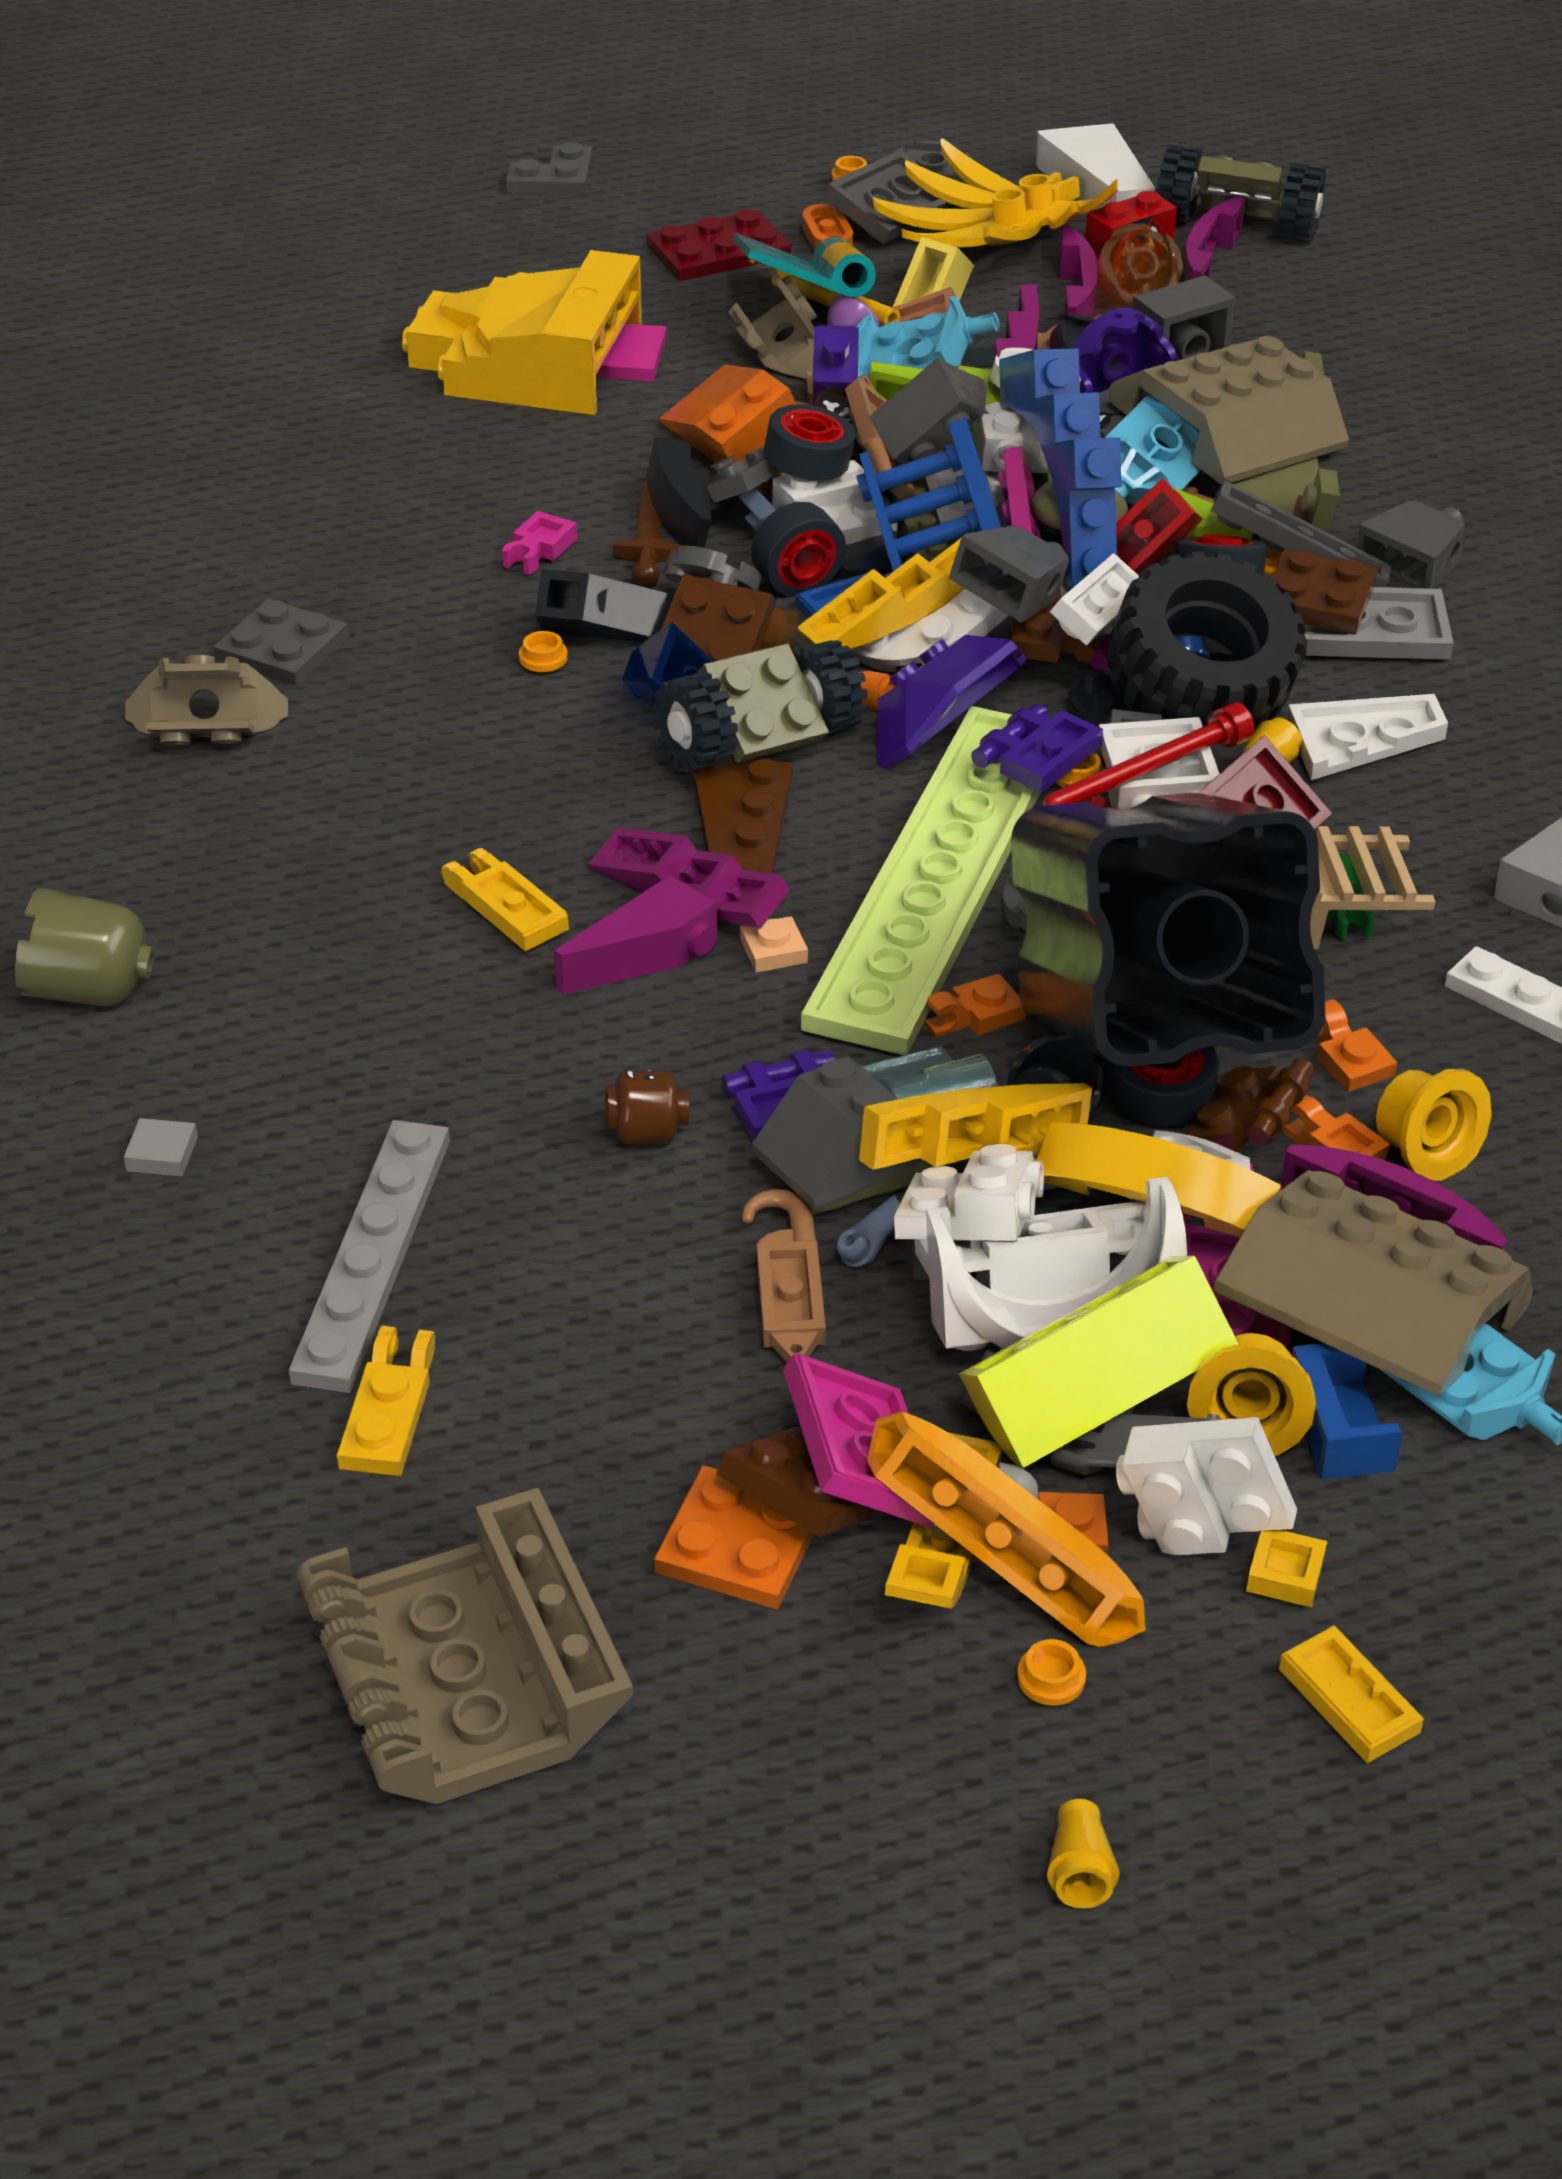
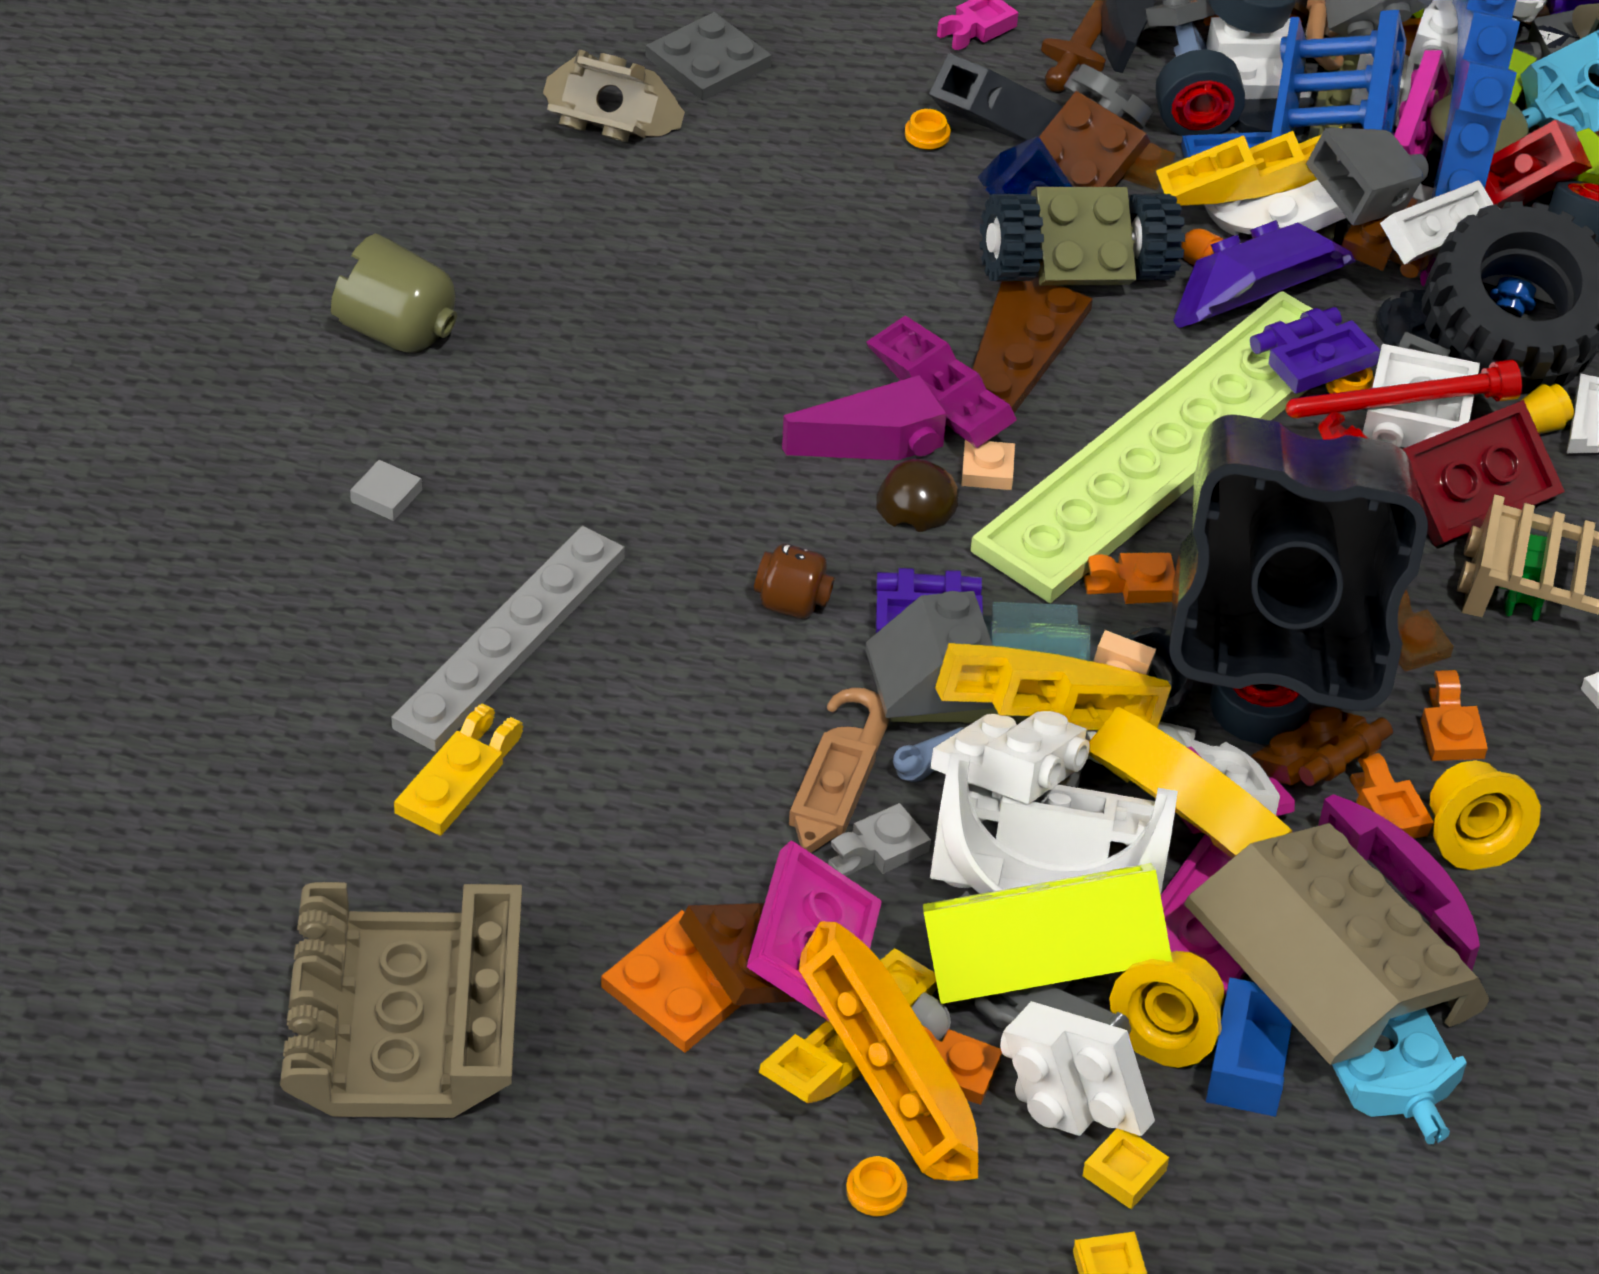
camera: 20 degrees right, 5 degrees up
(506, 899) = (778, 355): yellow hinge -> none
(721, 991) = (918, 495): none -> dark brown hair
(870, 1330) = (881, 839): none -> light grey plate
(1029, 1068) = (1124, 653): none -> light nougat plate

